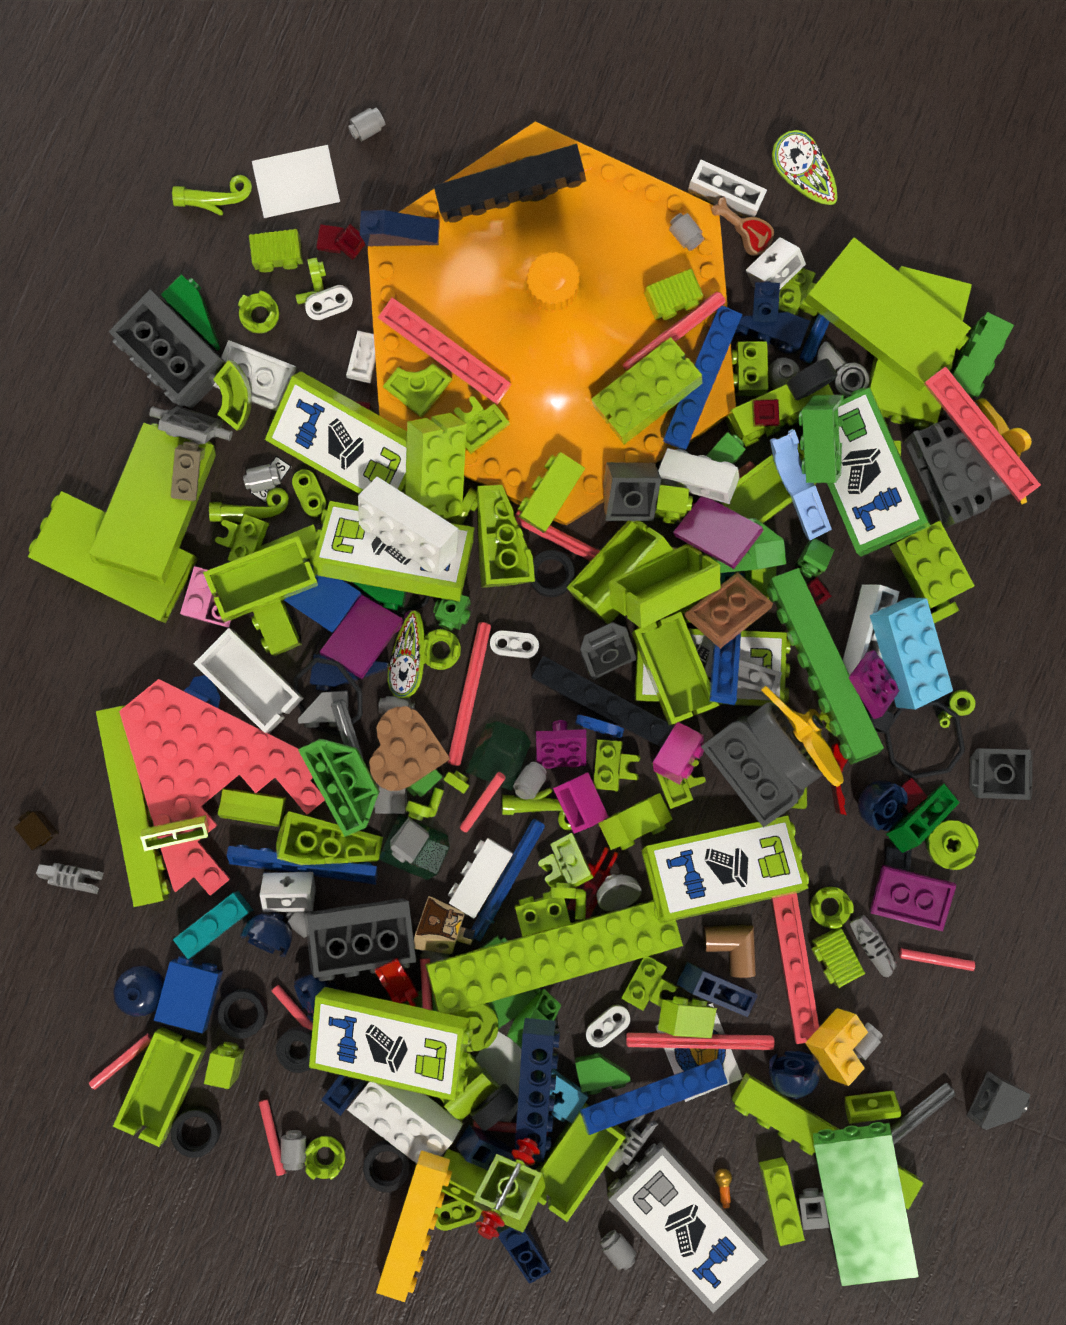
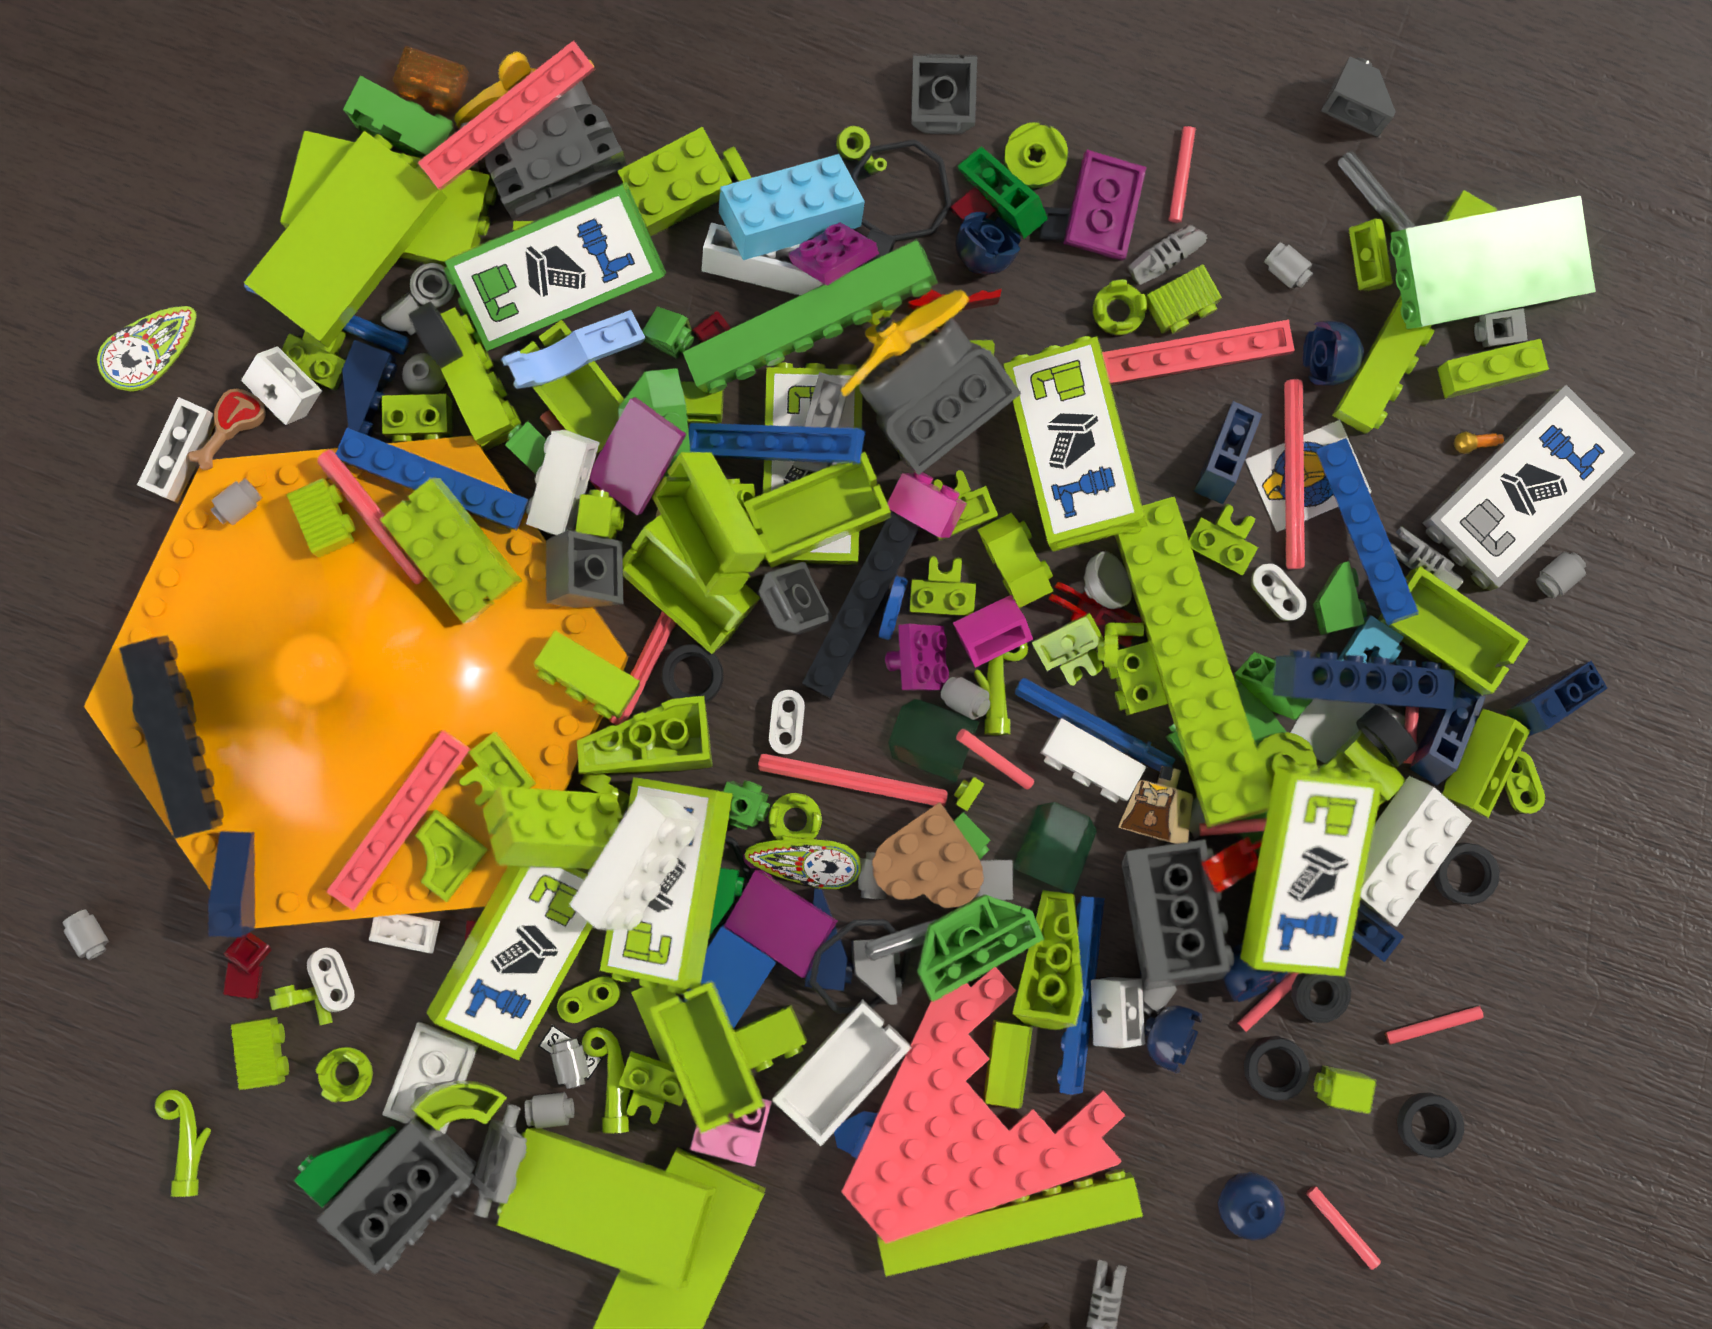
camera: 85 degrees left, 0 degrees up
(160, 1086) = (1374, 1173): lime piece -> none
(174, 828) = (1038, 1162): lime piece -> none
(186, 471) = (563, 1162): dark tan bracket -> none
(188, 994) = (1254, 1140): blue brick -> none
(213, 924) = (1163, 1110): teal brick -> none
(227, 462) = (549, 1110): none -> light grey brick
(293, 1150) = (1450, 996): light grey brick -> none
(295, 181) = (163, 1030): white sticker -> none
(316, 1169) = (1474, 965): lime piece -> none
(408, 841) = (1049, 853): light grey slope -> none
(413, 1226) = (1540, 835): yellow brick -> none
(419, 811) = (1008, 841): lime plate -> none
(509, 1191) = (1493, 711): lime brick -> none
(687, 1018) = (1266, 489): lime brick -> none
(728, 610) = (739, 441): nougat tile -> none
(739, 943) = (1164, 428): medium nougat brick -> none
(765, 413) = (479, 395): dark red tile -> none
(766, 301) = (323, 398): dark blue brick -> none
(821, 439) = (513, 322): bright green wedge -> none
(834, 1046) = (1292, 302): yellow brick -> none
(1012, 380) = (430, 78): none -> clear orange brick

